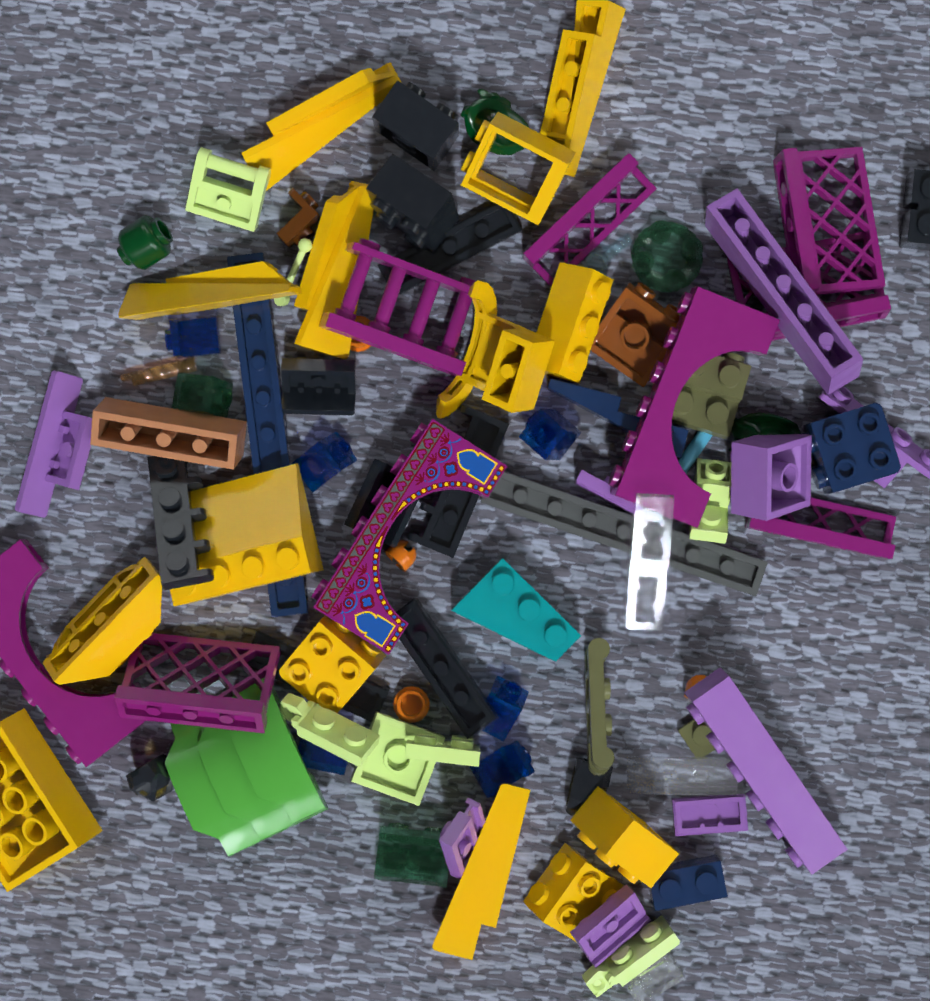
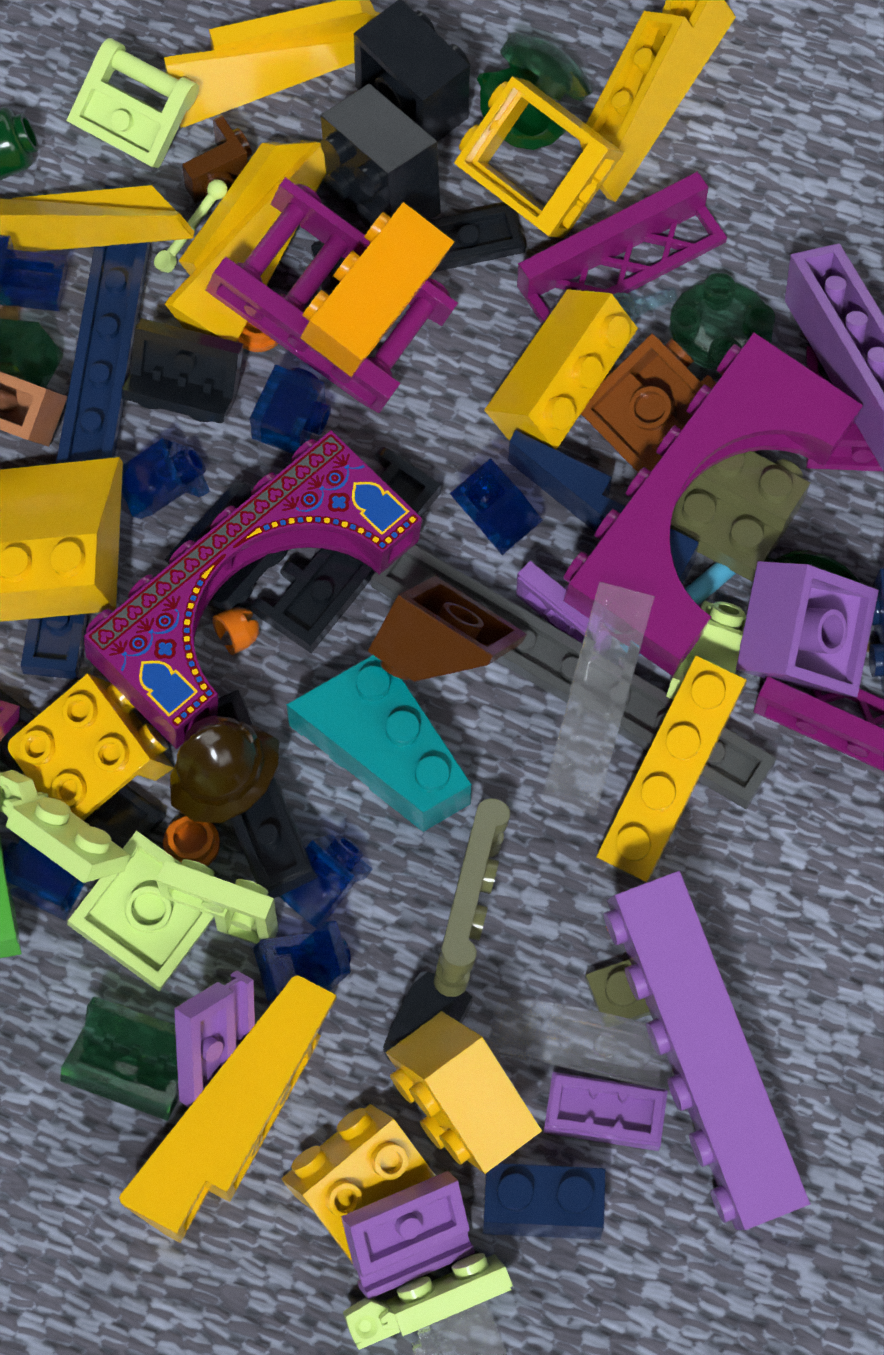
camera: 10 degrees right, 20 degrees down
(397, 392) = (290, 409): none -> clear blue brick
(422, 660) = (222, 769): none -> dark brown piece
(436, 308) = (374, 287): none -> light orange brick
(500, 360) = (457, 386): yellow piece -> none
(506, 90) = (554, 66): none -> clear green dish
(543, 543) = (440, 632): none -> reddish brown slope
(703, 587) = (671, 768): none -> yellow plate

